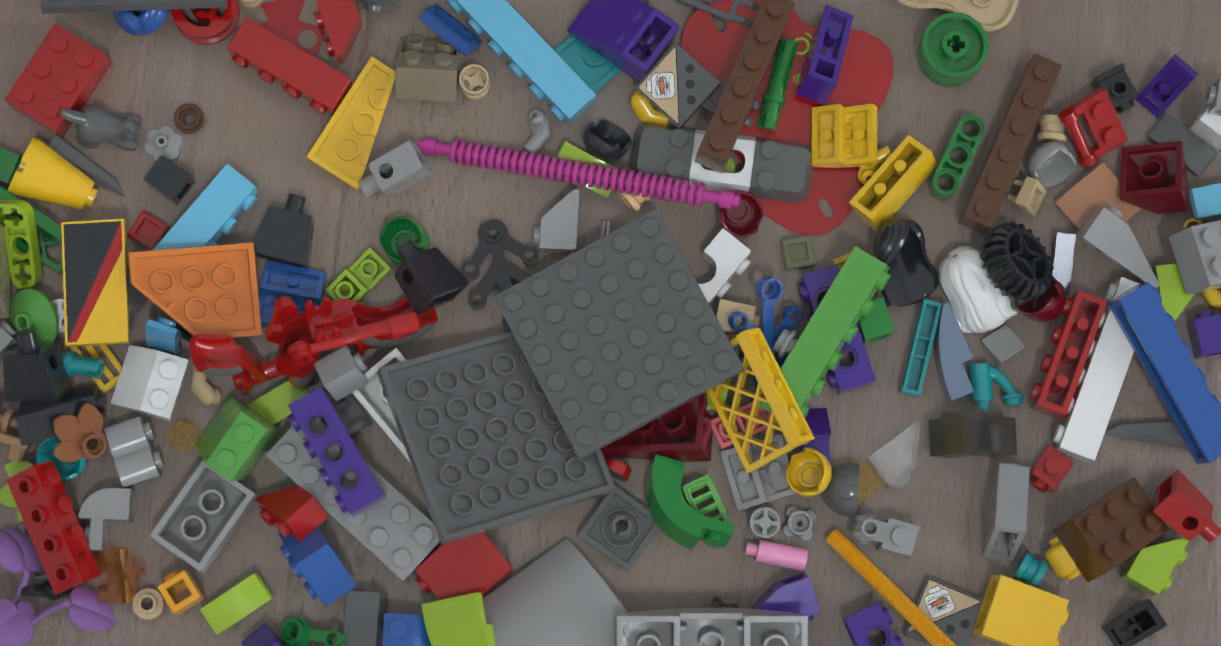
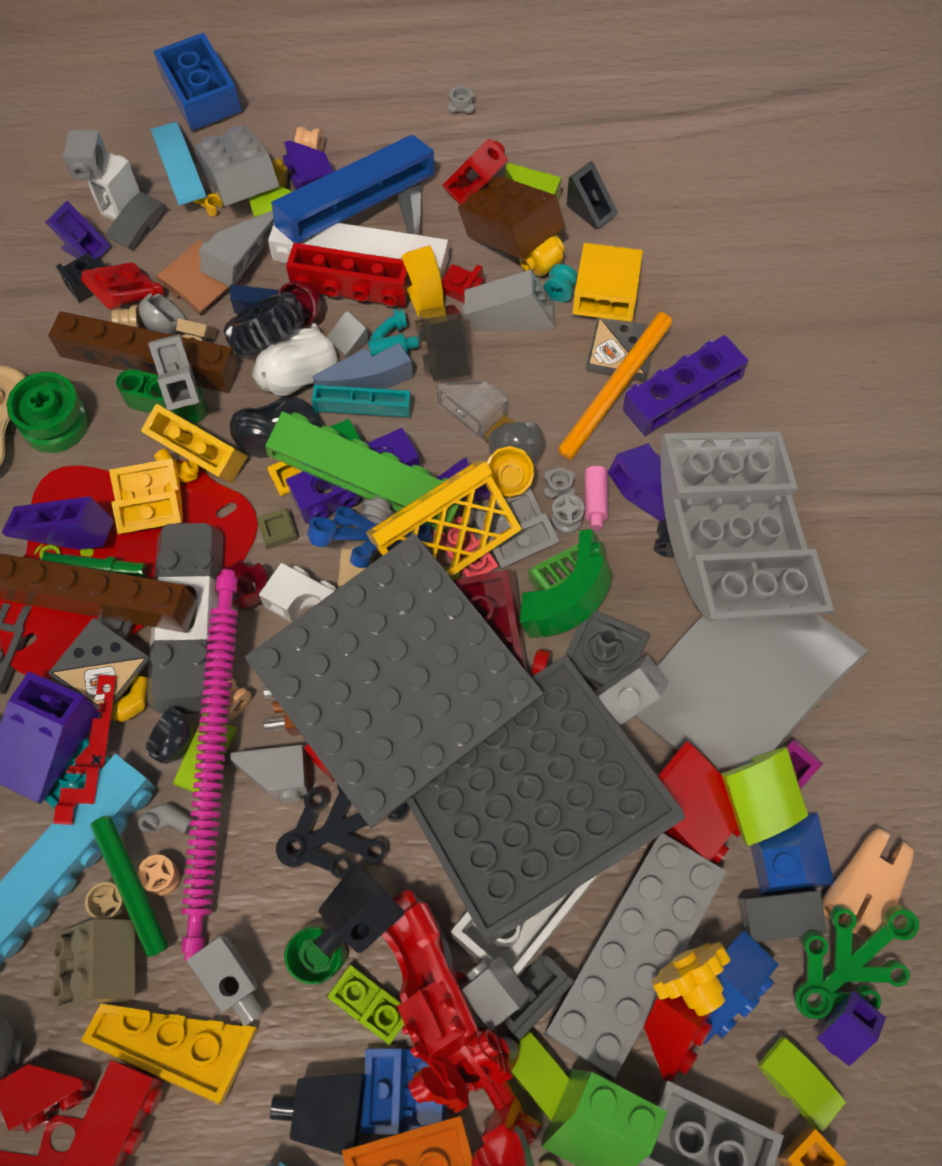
camera: 90 degrees left, 15 degrees down
(317, 406) = (635, 929): dark purple brick -> none
(321, 525) = (694, 978): none -> yellow plant
(450, 30) = (42, 946): blue tile -> none
(482, 99) = (129, 886): none -> green axle
(493, 118) = (153, 870): none -> light nougat wheel
(569, 528) = (632, 689): none -> light grey torso
(590, 67) = (83, 763): none -> red piece
(891, 535) = (555, 398): light grey brick -> none
(957, 172) = (174, 372): none -> light grey brick
(1047, 428) = (424, 274): none -> yellow slope
(1155, 177) = (167, 230): dark red slope -> none

